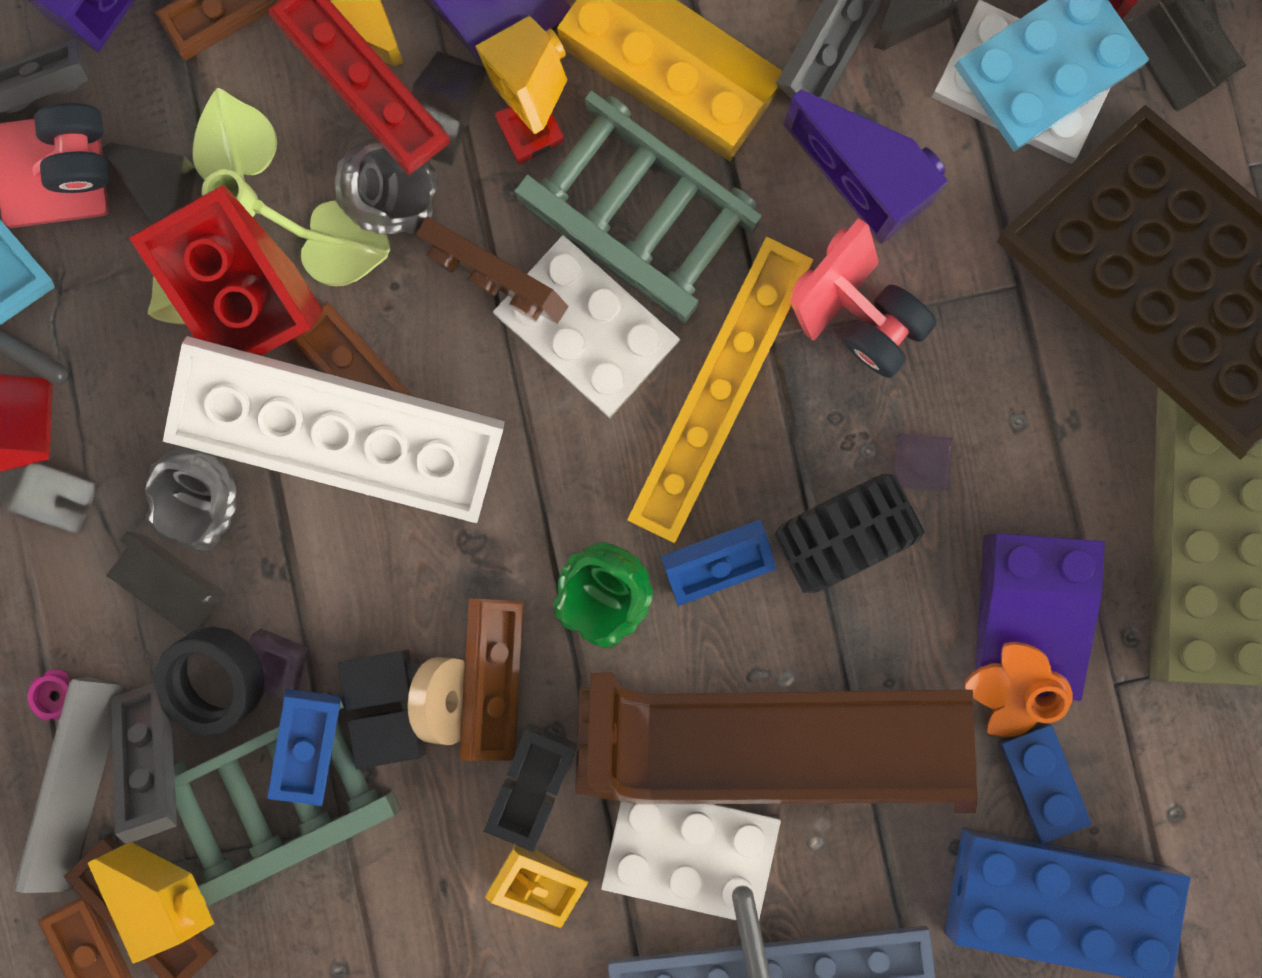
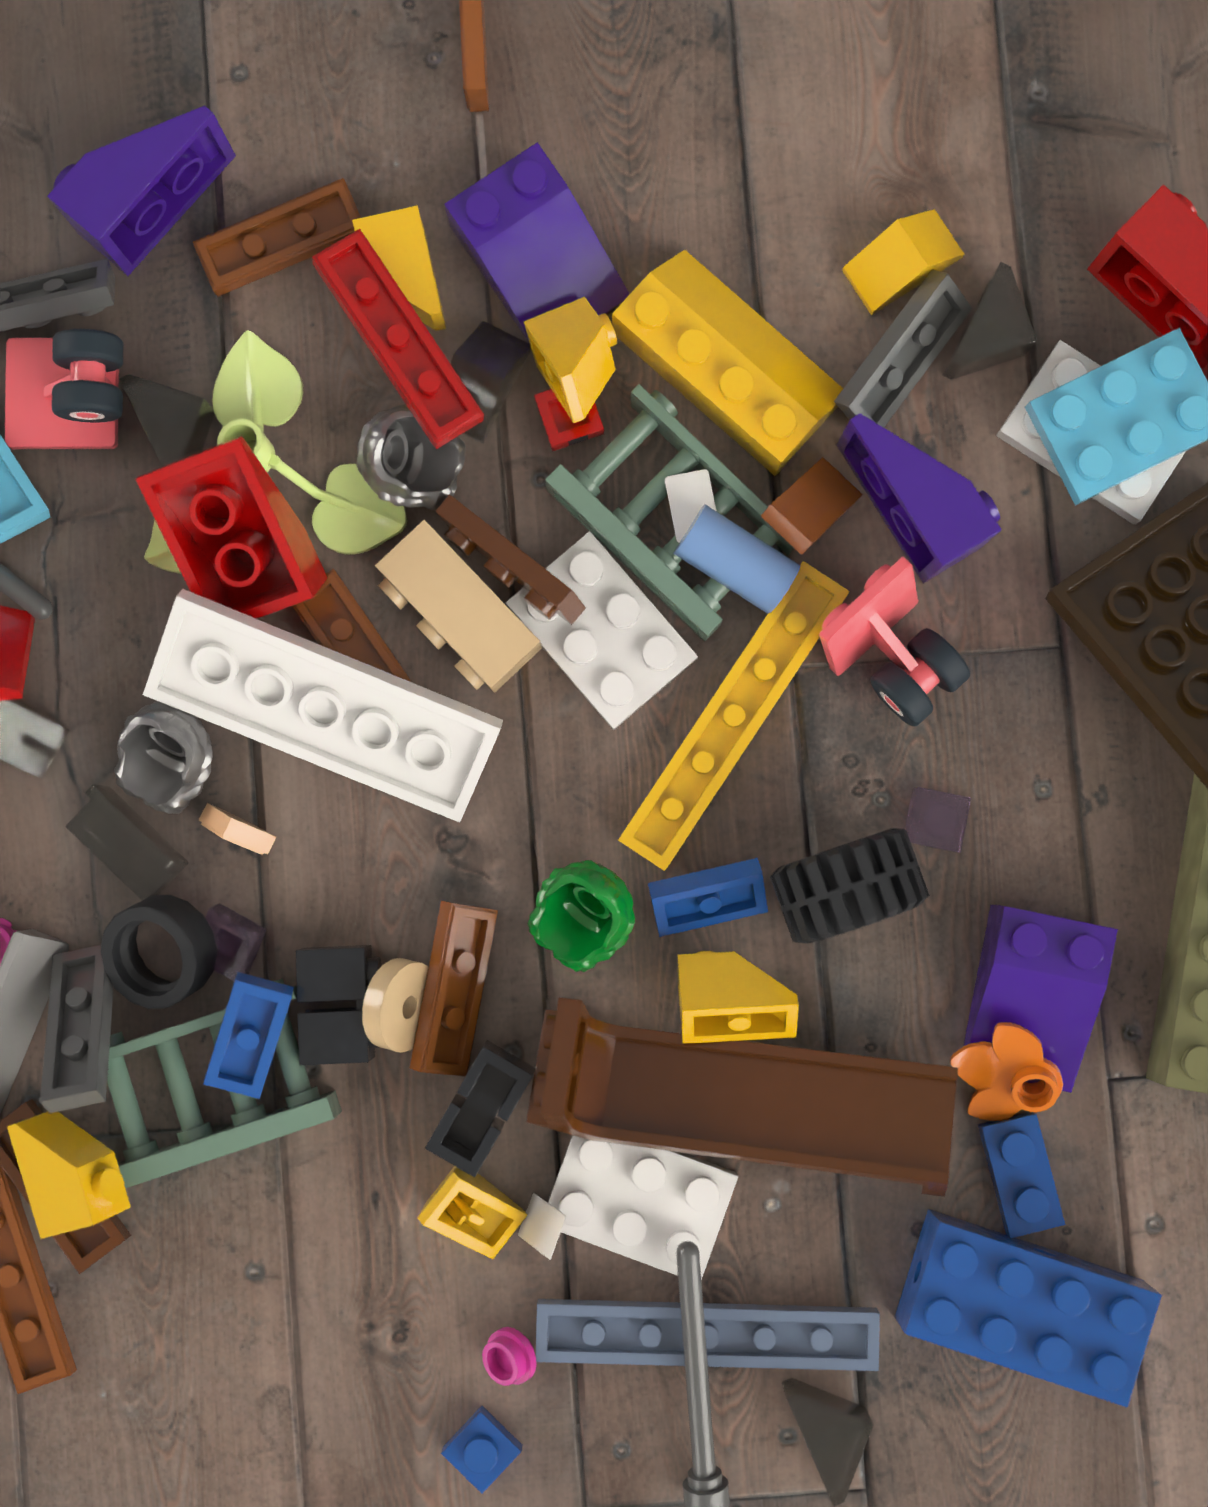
camera: 10 degrees right, 0 degrees up
(268, 557) = (236, 830): none -> light nougat tile
(447, 323) = (456, 608): none -> tan brick
(603, 890) = (542, 1226): none -> white sticker
(656, 198) = (686, 497): none -> white sticker
(704, 242) = (737, 559): none -> medium blue brick
(753, 655) = (732, 1000): none -> yellow slope
(767, 183) = (811, 505): none -> dark orange tile

